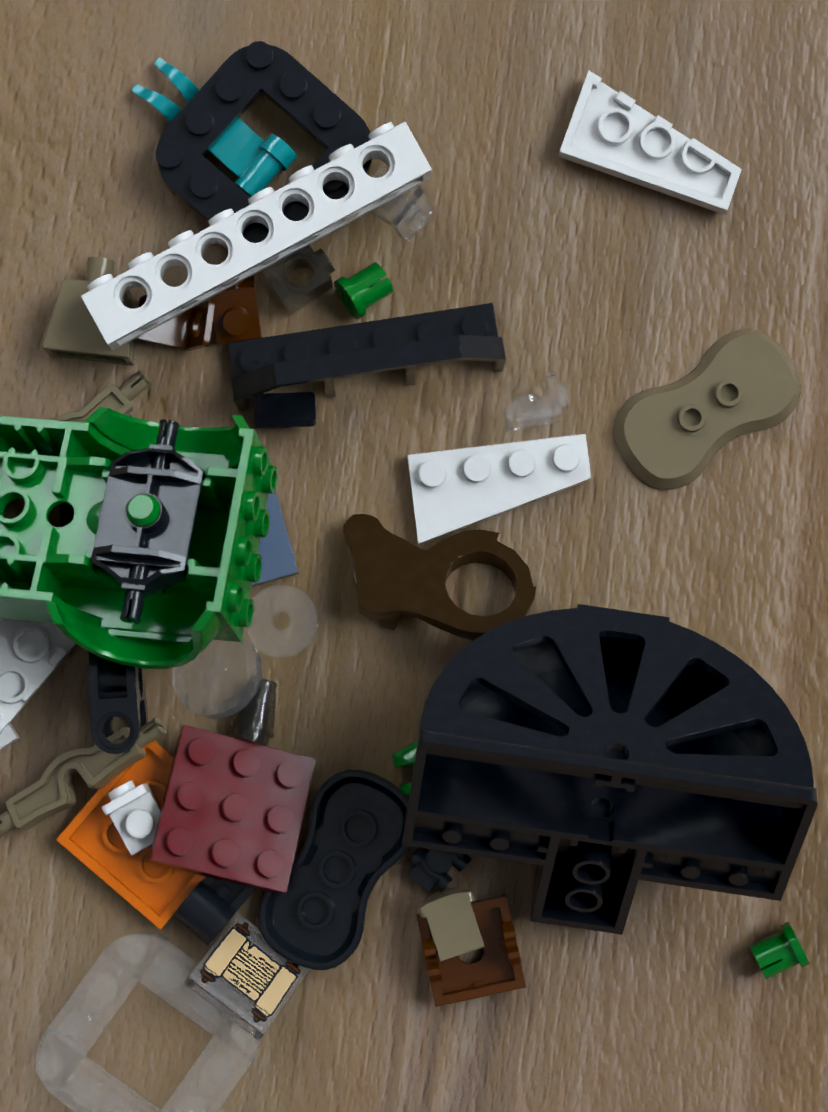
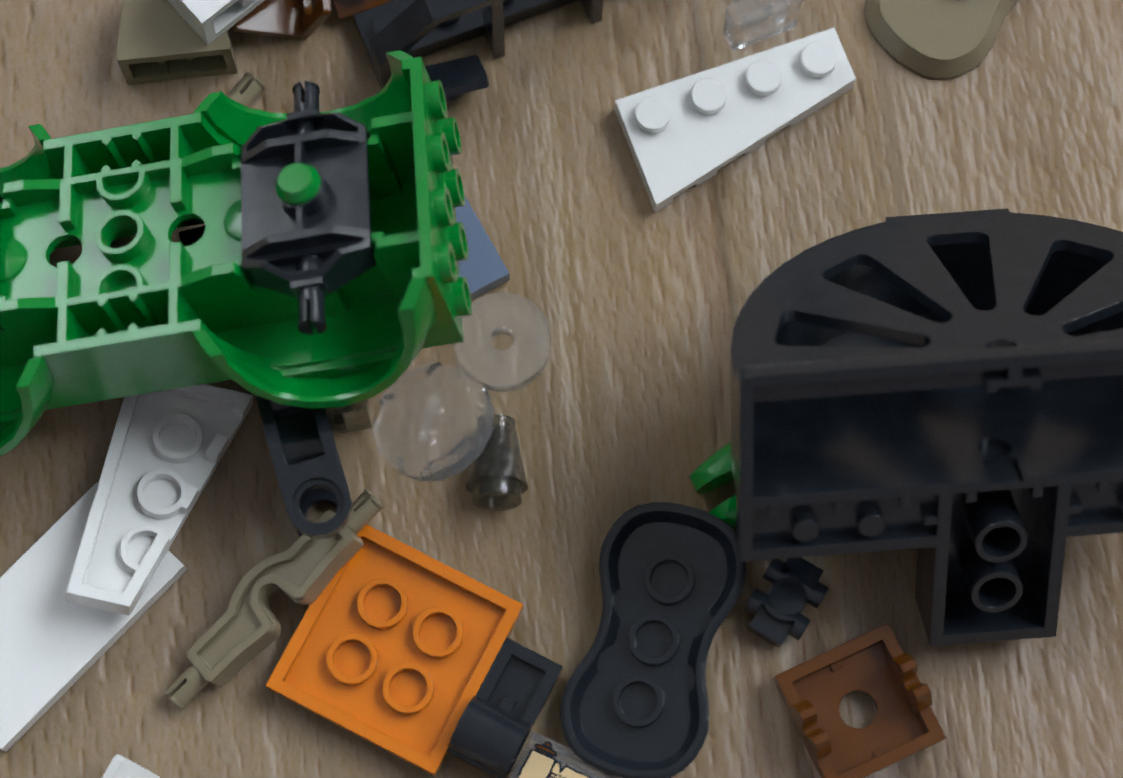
camera: 10 degrees left, 10 degrees down
(134, 814) = (369, 624): white bracket -> none
(232, 810) = (496, 590): dark red plate -> none
(405, 580) = (645, 248): dark brown animal -> none
(452, 922) = (828, 671): dark tan tile -> none

